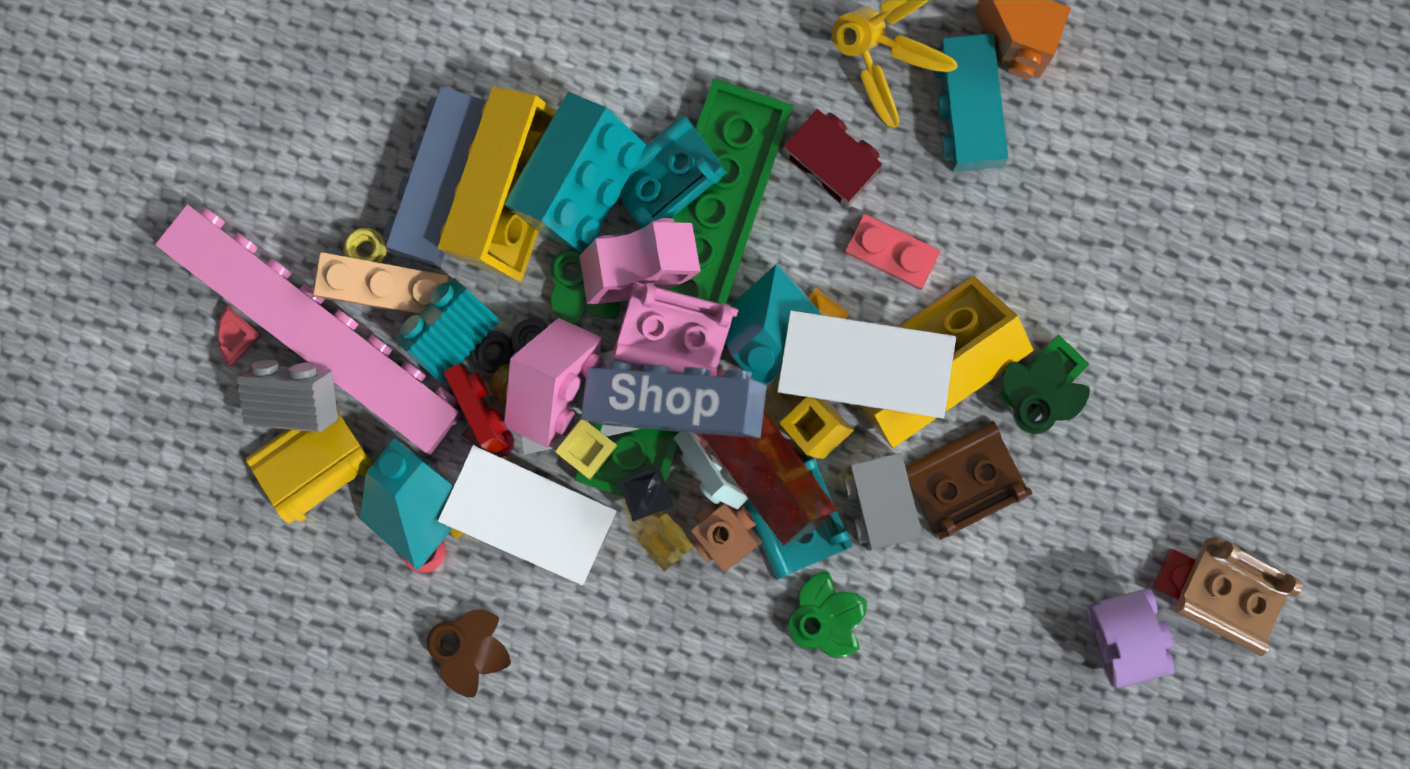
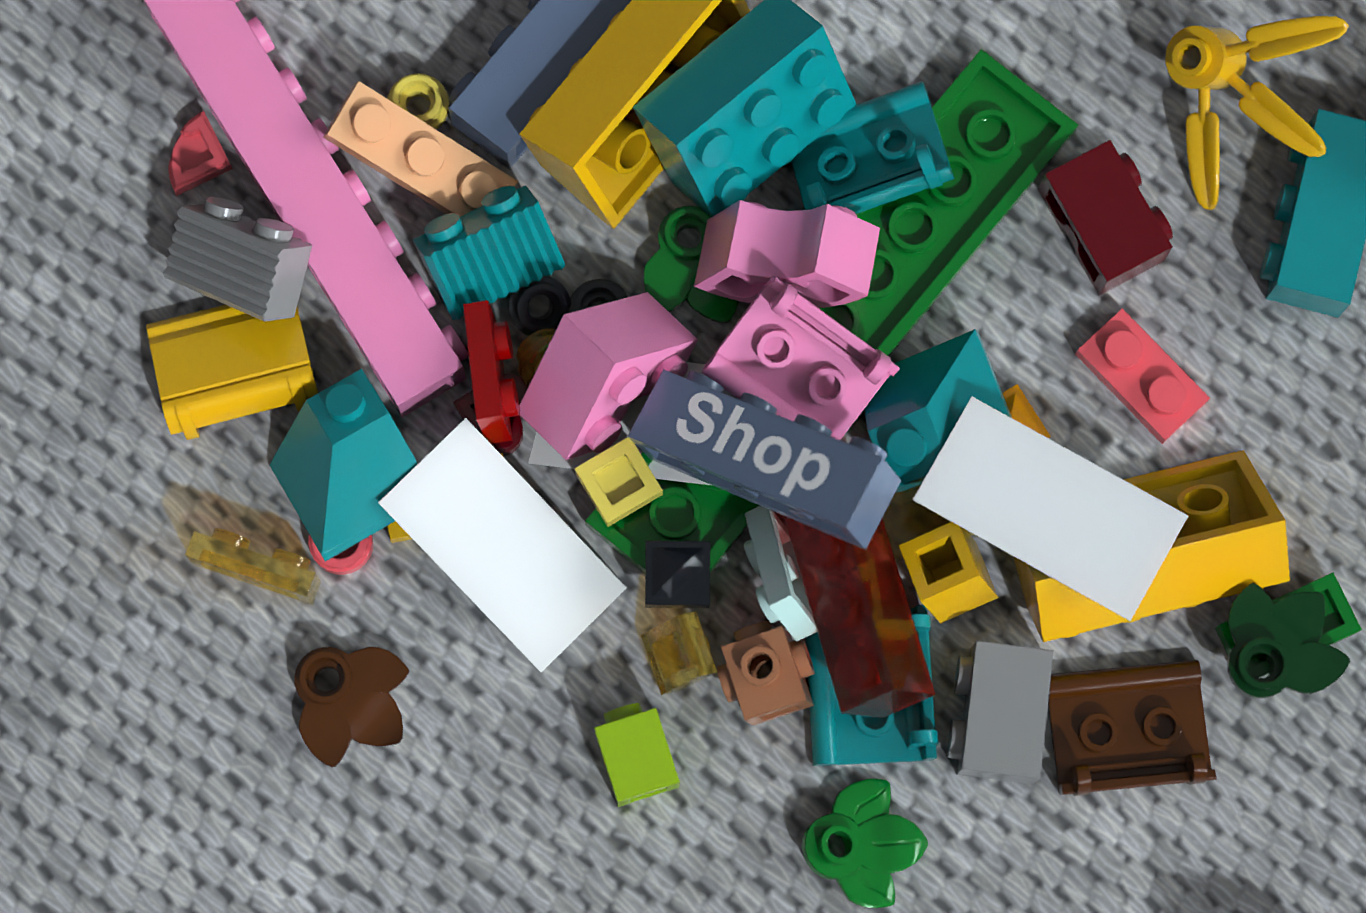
camera: 15 degrees right, 5 degrees down
(355, 587) = (229, 555): none -> clear yellow plate
(662, 616) = (636, 754): none -> lime brick

